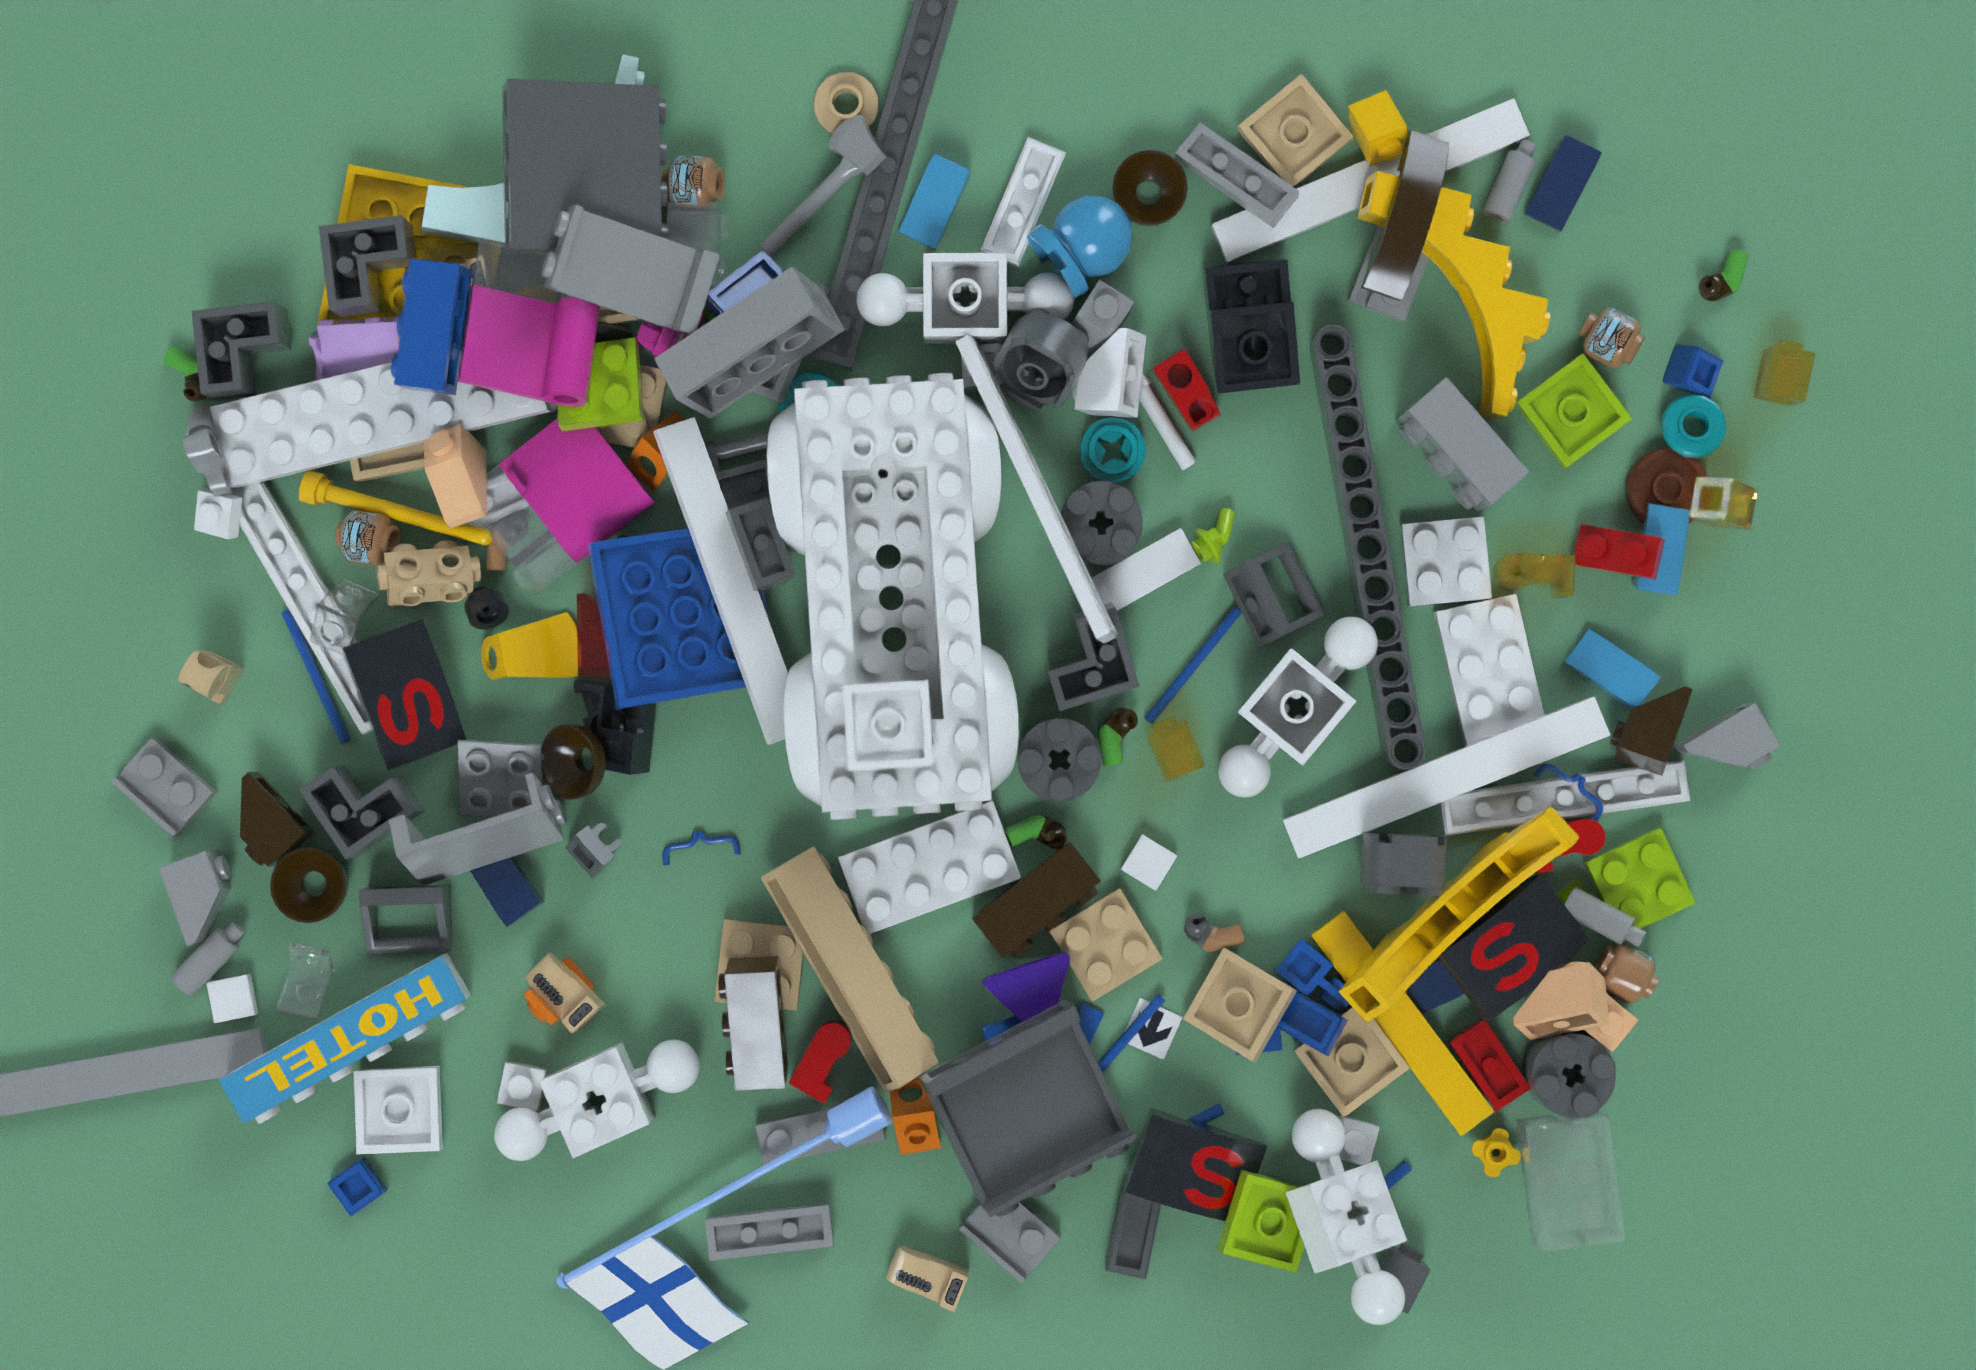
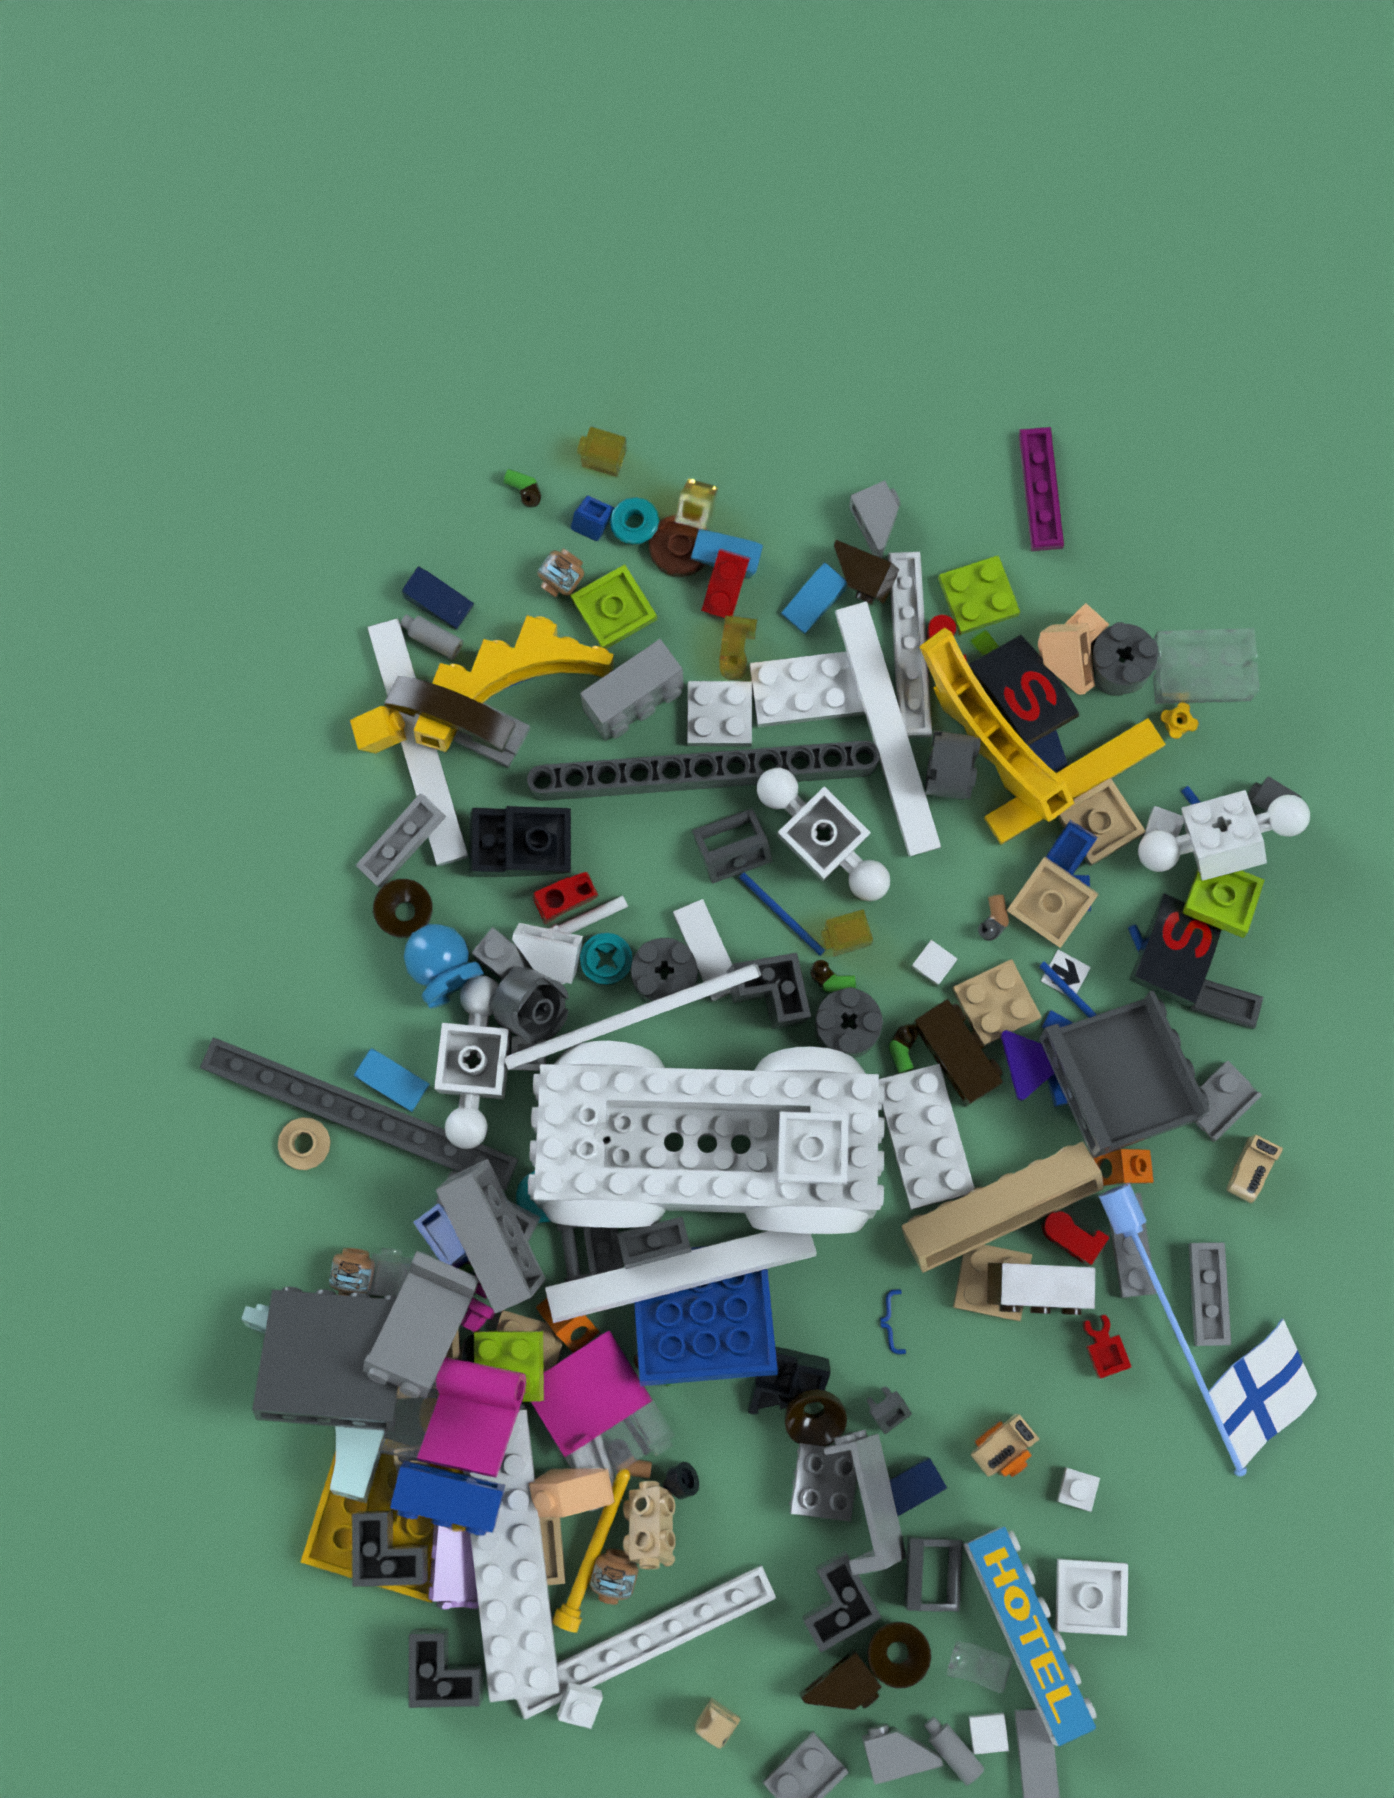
camera: 80 degrees left, 10 degrees down
(188, 366) = (456, 1717): bright green arm -> none
(204, 450) = (524, 1709): light grey bar -> none
(315, 676) = (724, 1634): blue axle -> none
(343, 607) = (670, 1600): clear bracket -> none
(357, 1186) = (1153, 1639): blue tile -> none
(404, 694) = (747, 1556): black slope -> none
(524, 1132) = (1117, 1489): white brick -> none
(534, 650) = (720, 1442): yellow piece -> none
(590, 639) = (721, 1391): clear red slope -> none
(687, 1110) = (1107, 1352): none -> red plate
(860, 154) = (347, 1133): light grey piece -> none
(1023, 200) = (399, 1009): white tile -> none
(1209, 544) = (688, 890): lime plate -> none
(1295, 132) = (372, 793): tan plate -> none
(1306, 969) = (1028, 849): blue plate -> none
(1489, 1064) = (1111, 718): red plate -> none
(1576, 777) = (902, 629): blue piece -> none
(1603, 918) = (1005, 621): light grey cylinder -> none
(1627, 972) = (1048, 608): medium nougat head -> none
(1793, 952) = (1041, 489): none -> magenta tile

